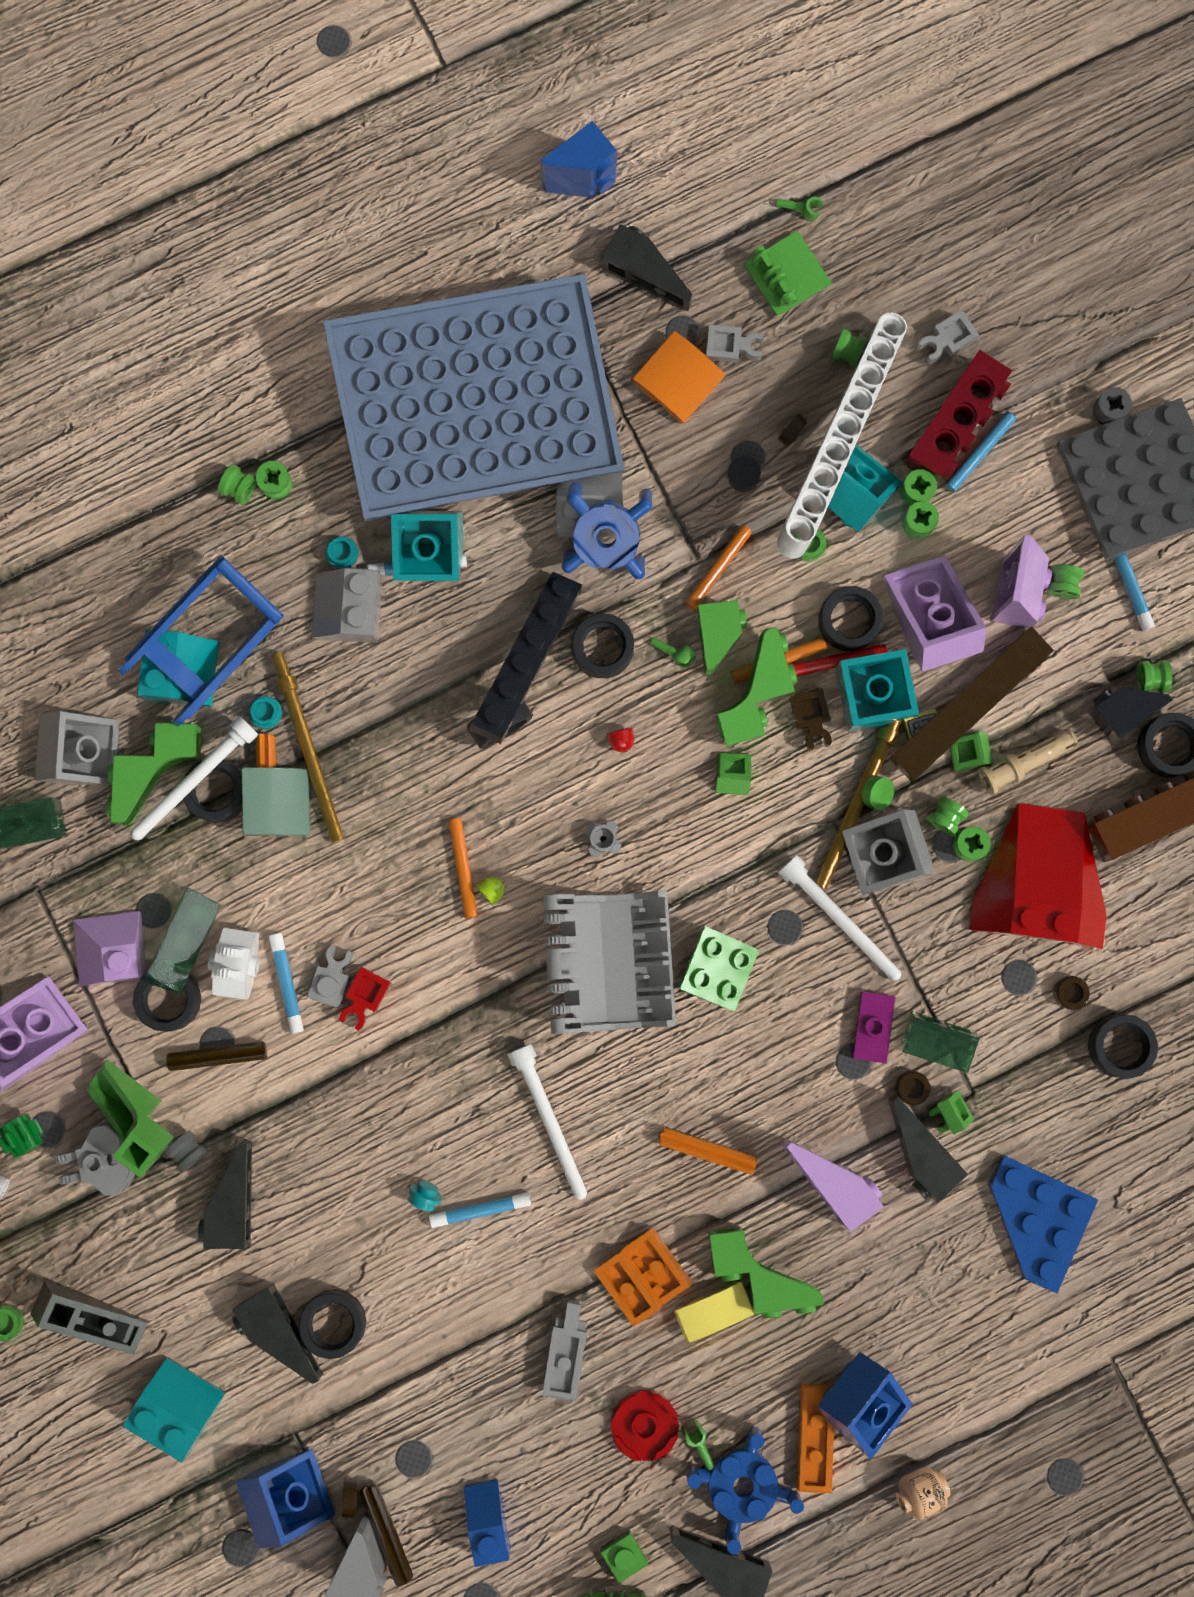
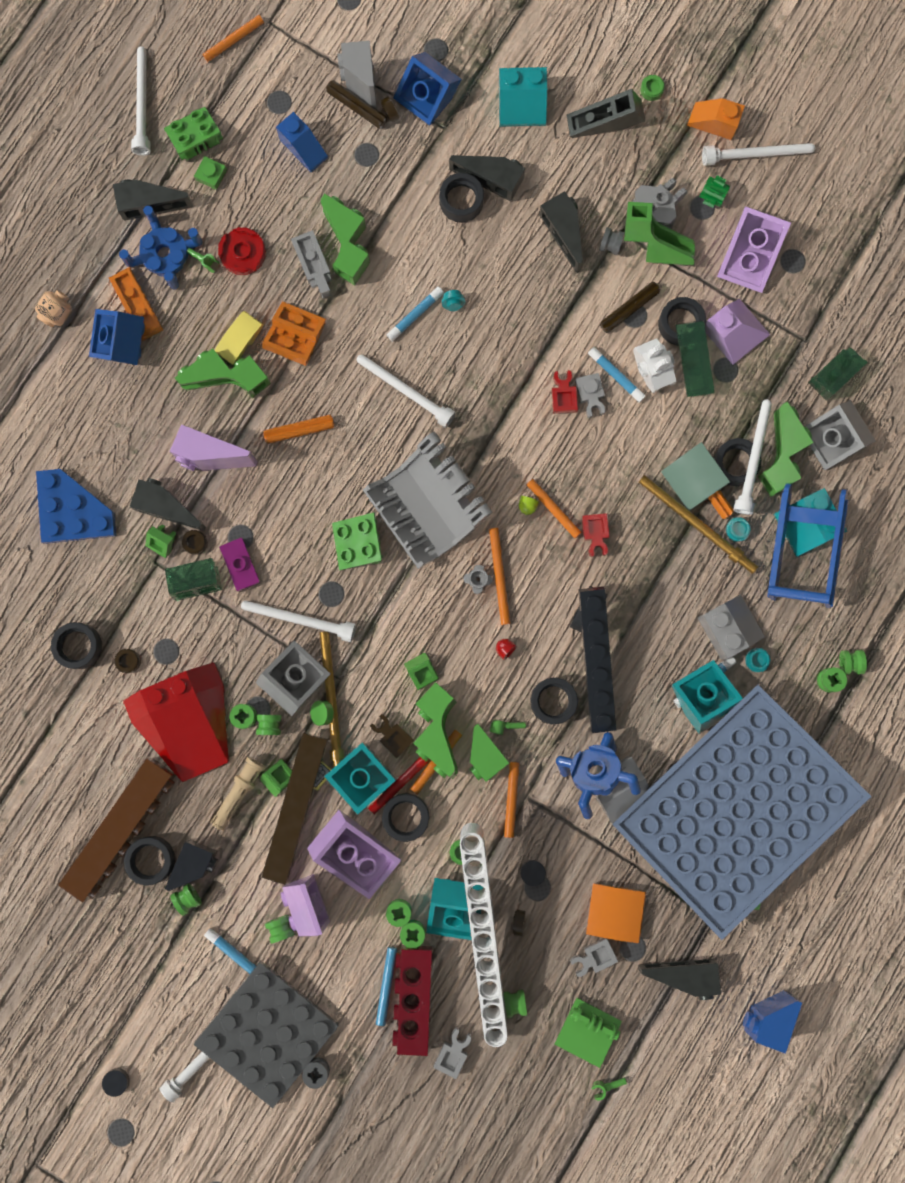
camera: 150 degrees right, 0 degrees up
(431, 812) = (596, 529): none -> red plate
(496, 1372) = (348, 227): none -> bright green arch
(575, 827) = (499, 576): none -> orange bar

